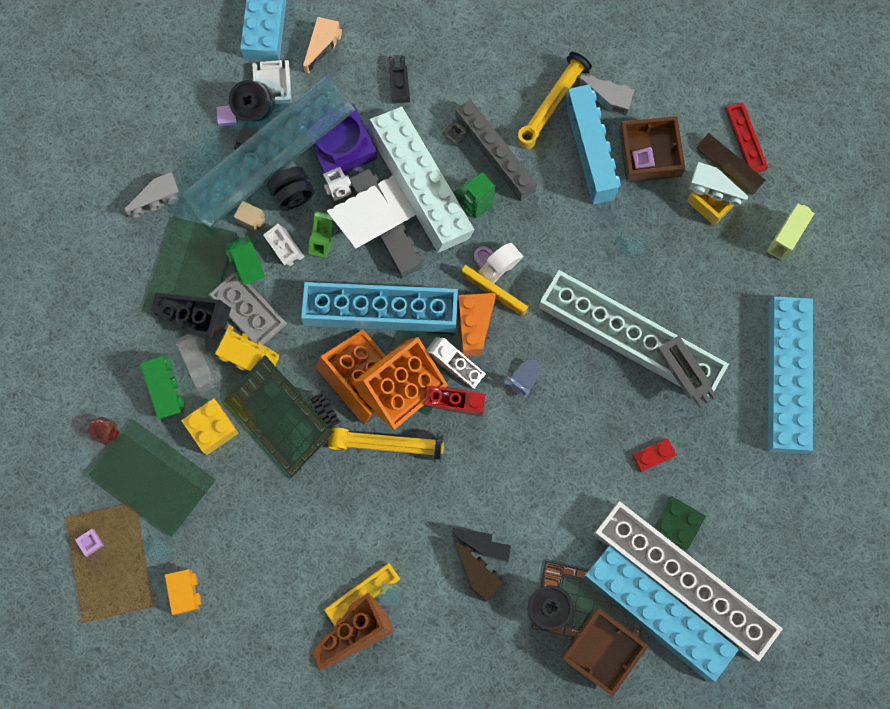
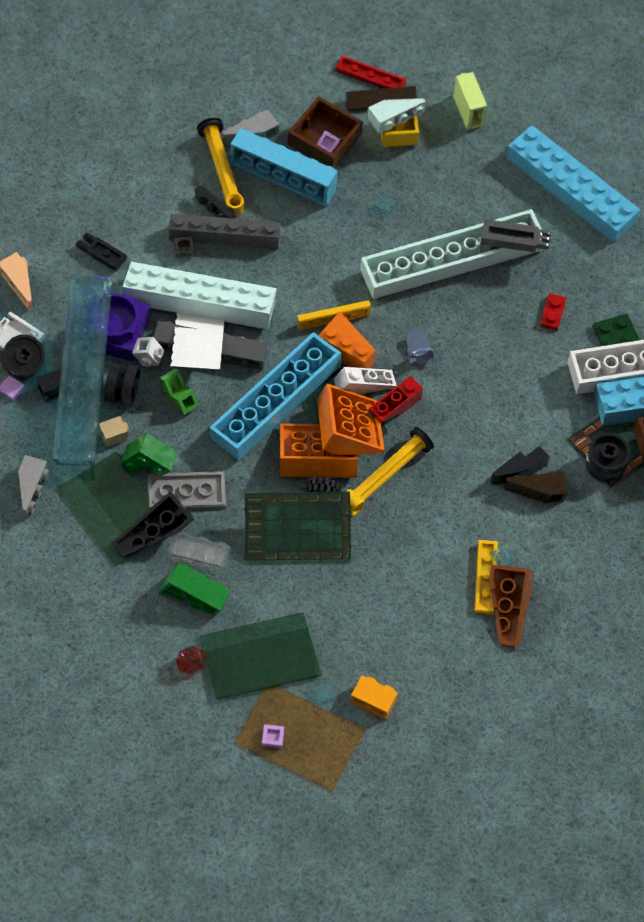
camera: 55 degrees left, 15 degrees down
(210, 426) = (259, 581): yellow brick -> none
(242, 351) = (219, 512): yellow wedge -> none
(283, 245) = (160, 423): white hinge -> none
(476, 195) = (249, 263): green wedge -> none
(481, 255) = (298, 304): lavender tile -> none
(500, 261) = (316, 293): white brick -> none
(513, 123) = (212, 203): none -> black hinge

